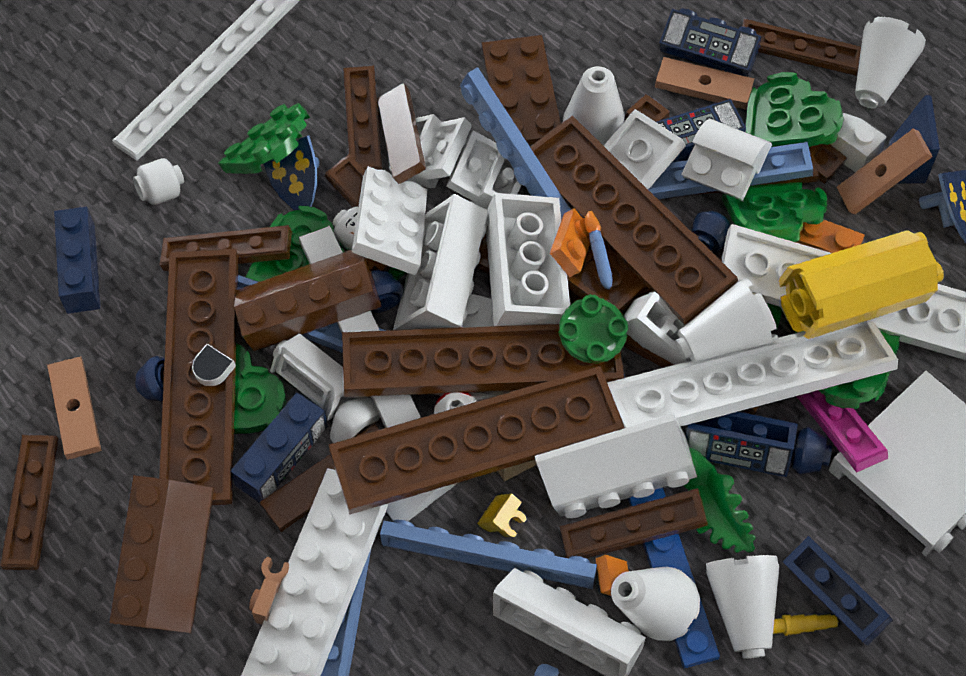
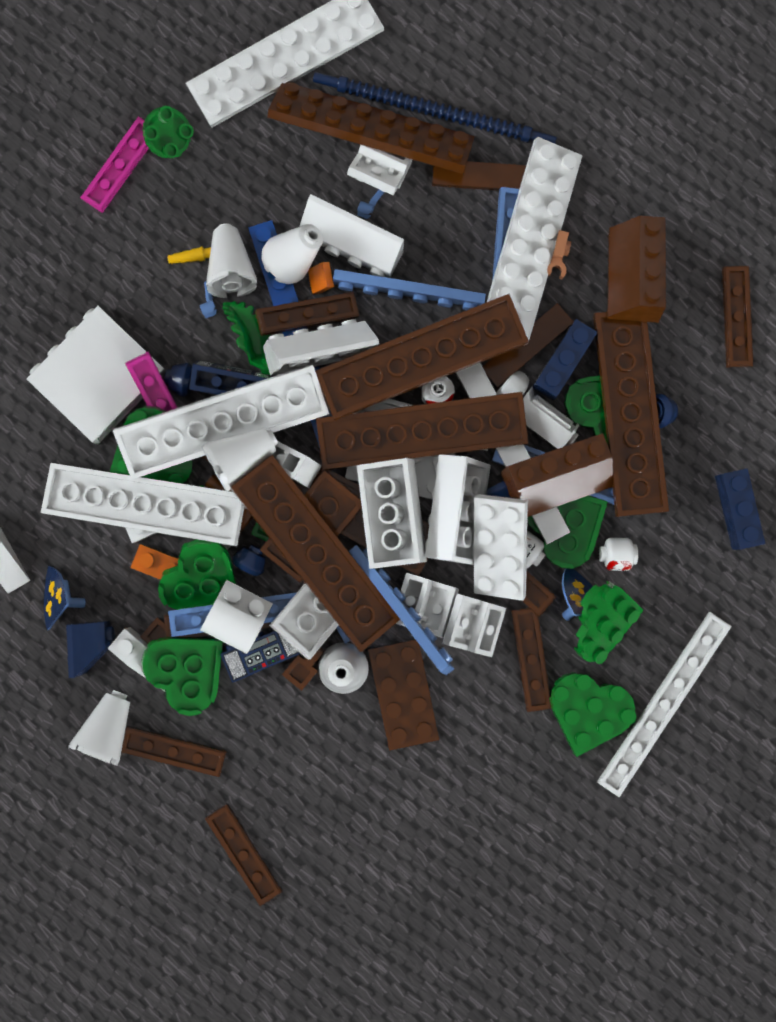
camera: 175 degrees right, 25 degrees up
(69, 390) = (712, 373): nougat tile -> none
(158, 181) = (688, 585): white head -> none
(212, 366) = (622, 412): black tile -> none
(239, 215) = (618, 554): none -> white head
(251, 244) = (632, 527): reddish brown tile -> none
(297, 61) = (589, 711): none -> green plate
(401, 134) = (498, 635): tile -> none
(499, 514) = (401, 320): yellow tile -> none
(571, 243) = (358, 527): orange plate -> none
(593, 330) = (339, 452): green dish -> none
(599, 251) = (341, 537): medium blue piece -> none
(689, 80) = (237, 702): nougat tile -> none
(710, 42) = (247, 744): brick -> none
(776, 547) = (208, 307): none -> medium blue hand
(838, 591) = (166, 271): dark blue brick -> none
(859, 283) = (136, 492): yellow brick -> none
(884, 171) = (121, 609): nougat tile -> none

